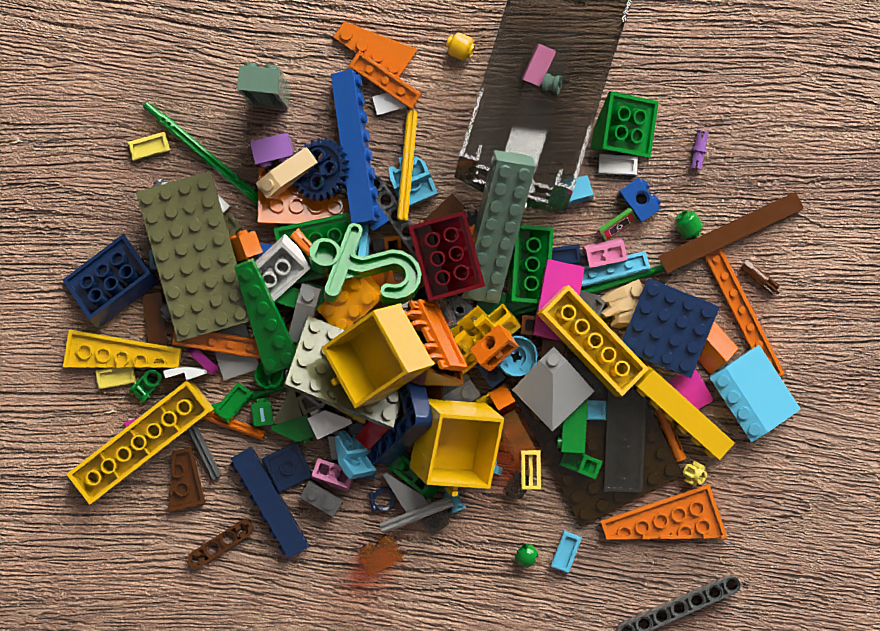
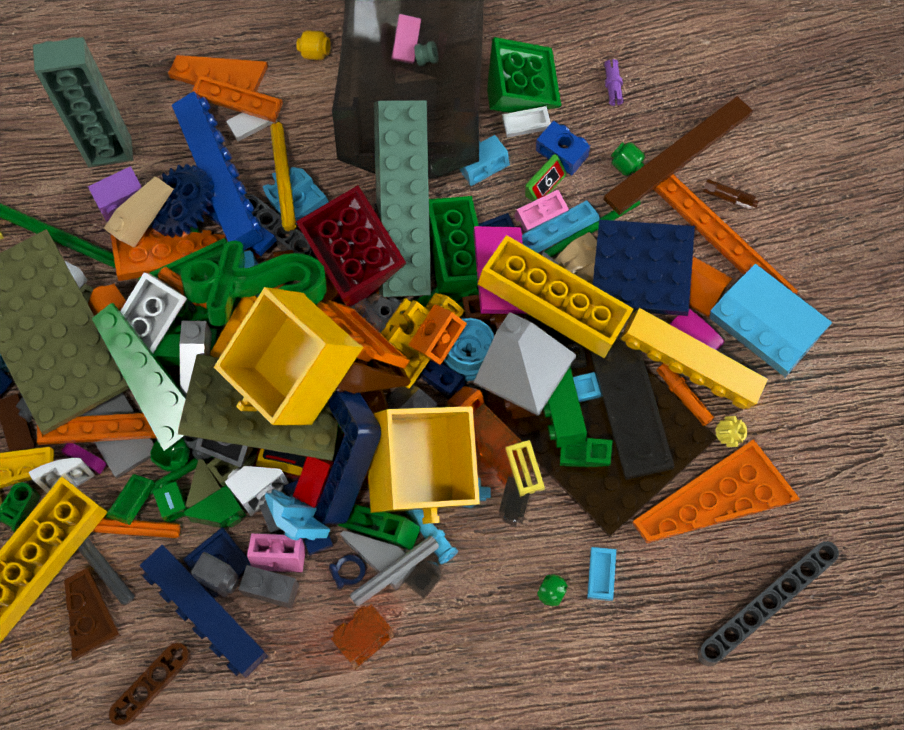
camera: 10 degrees left, 20 degrees down
(286, 483) = (215, 574): none -> flat silver brick

